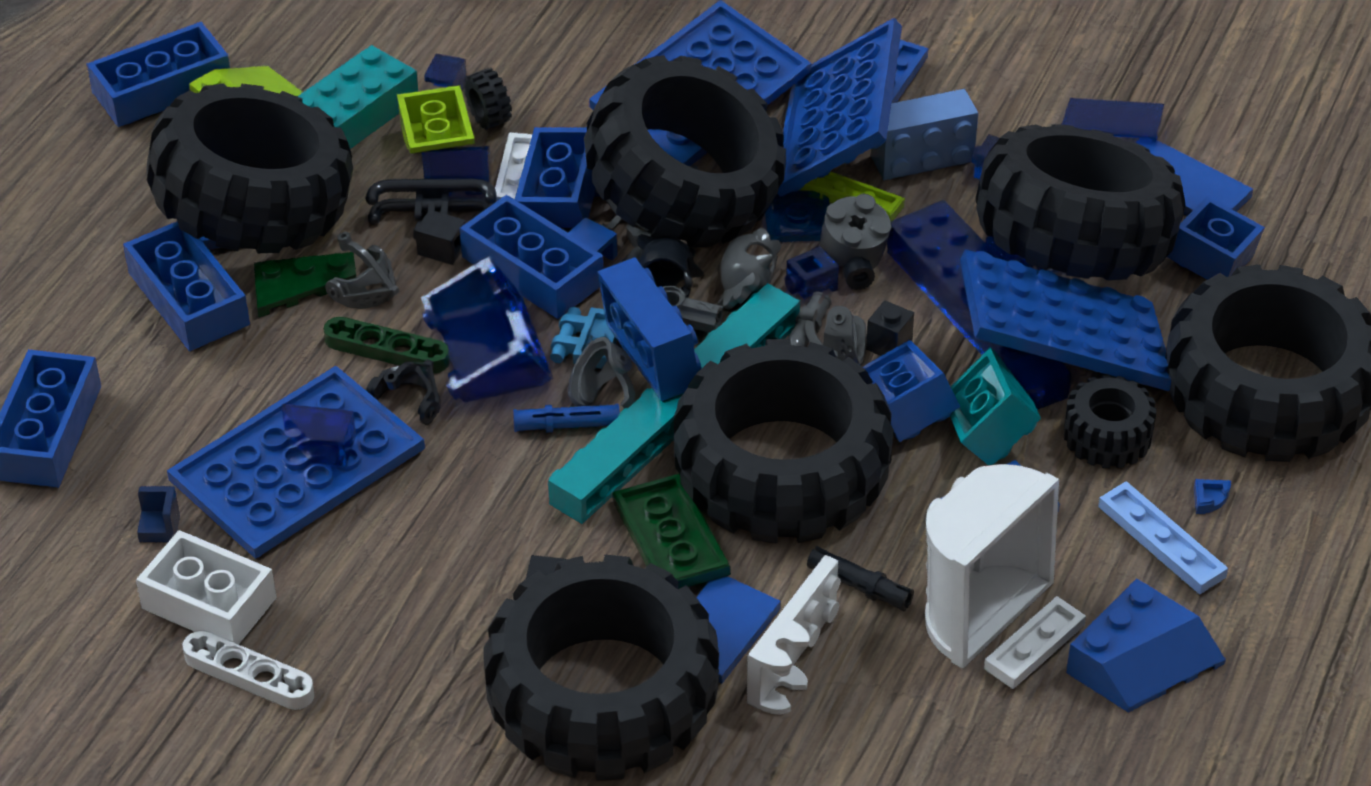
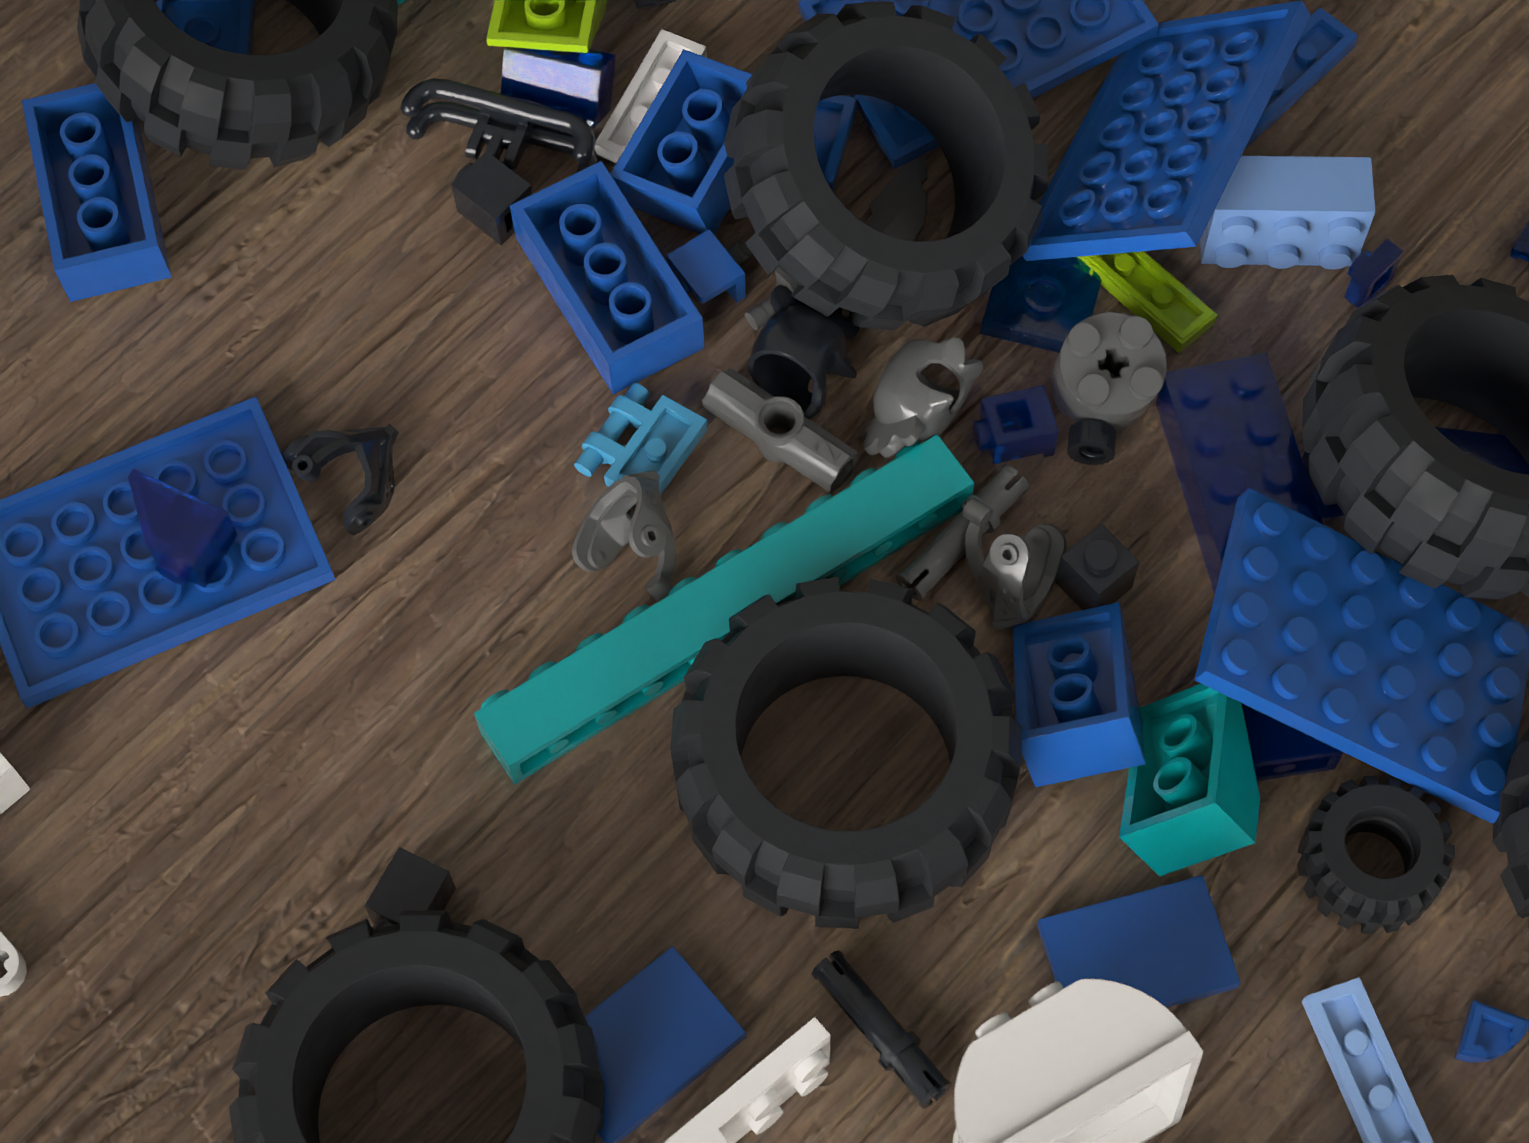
camera: 20 degrees right, 20 degrees up
(294, 278) = (270, 211): dark green wing -> none
(348, 336) = (352, 367): dark green beam -> none
(353, 292) = (367, 248): dark grey helmet -> none
(486, 334) = (497, 406): clear blue windscreen -> none
(564, 417) = (493, 575): blue pin -> none
(649, 327) = (712, 489): blue brick -> none
(671, 531) = (628, 857): dark green tile -> none

